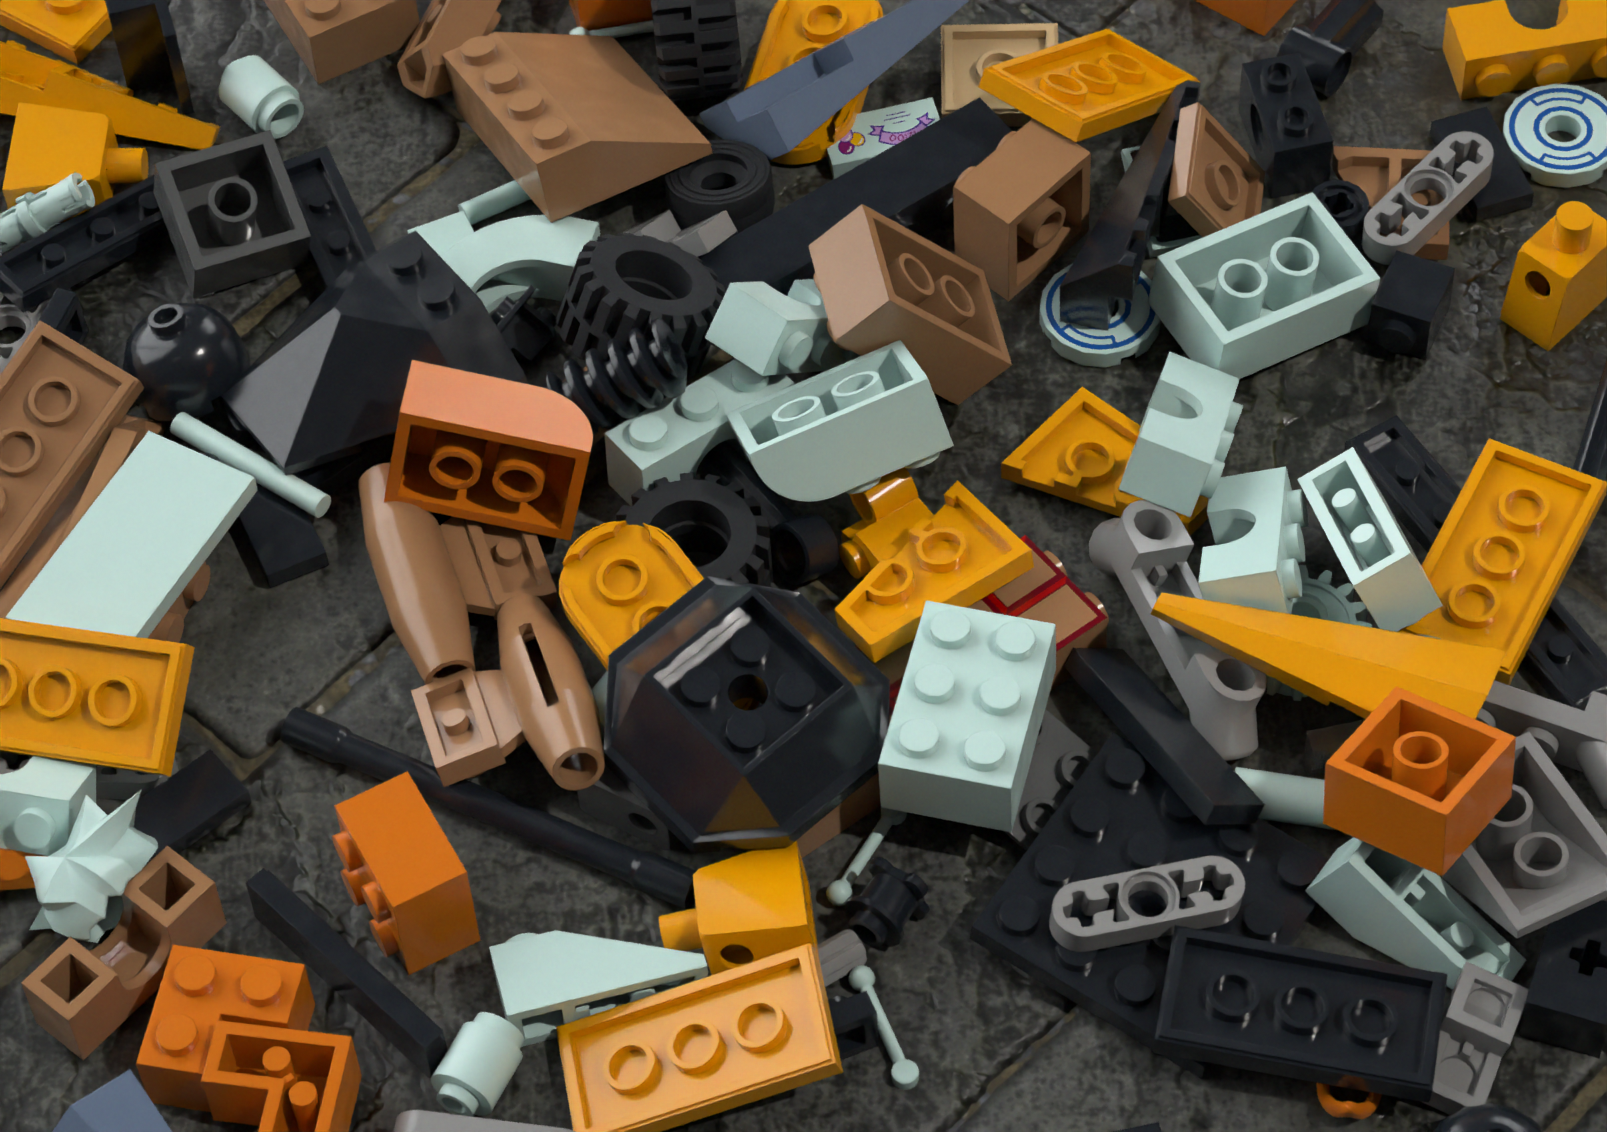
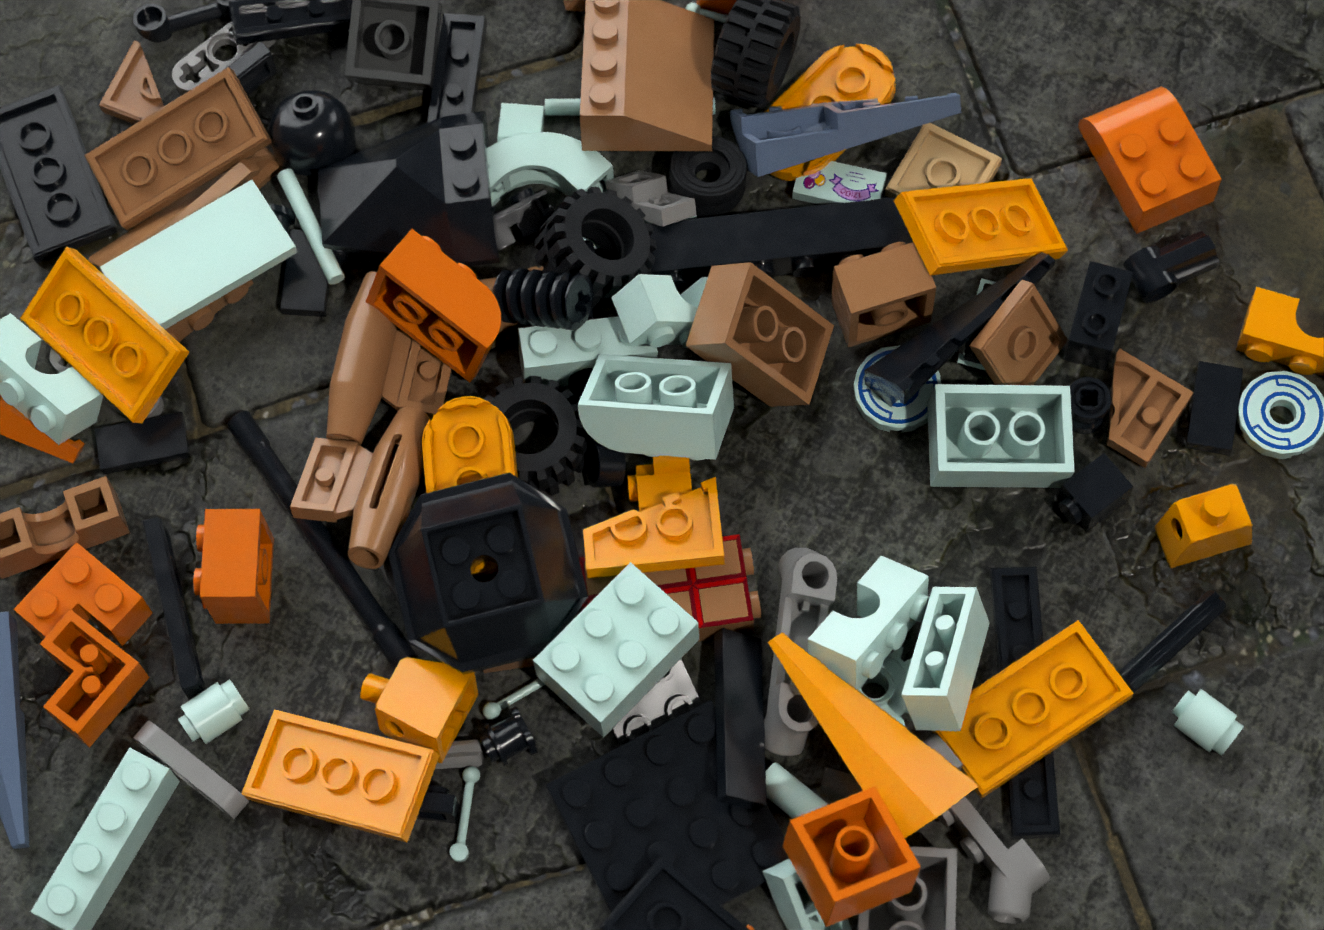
camera: 30 degrees right, 15 degrees up
(87, 877) = (56, 466): light aqua hair -> none
(571, 976) = (292, 684): light aqua slope -> none
(1083, 457) = (833, 506): light orange wing -> none
(1131, 927) = (617, 832): light grey beam -> none
(1183, 436) = (856, 534): light aqua arch -> none
(1433, 174) = (1187, 422): light grey beam -> none

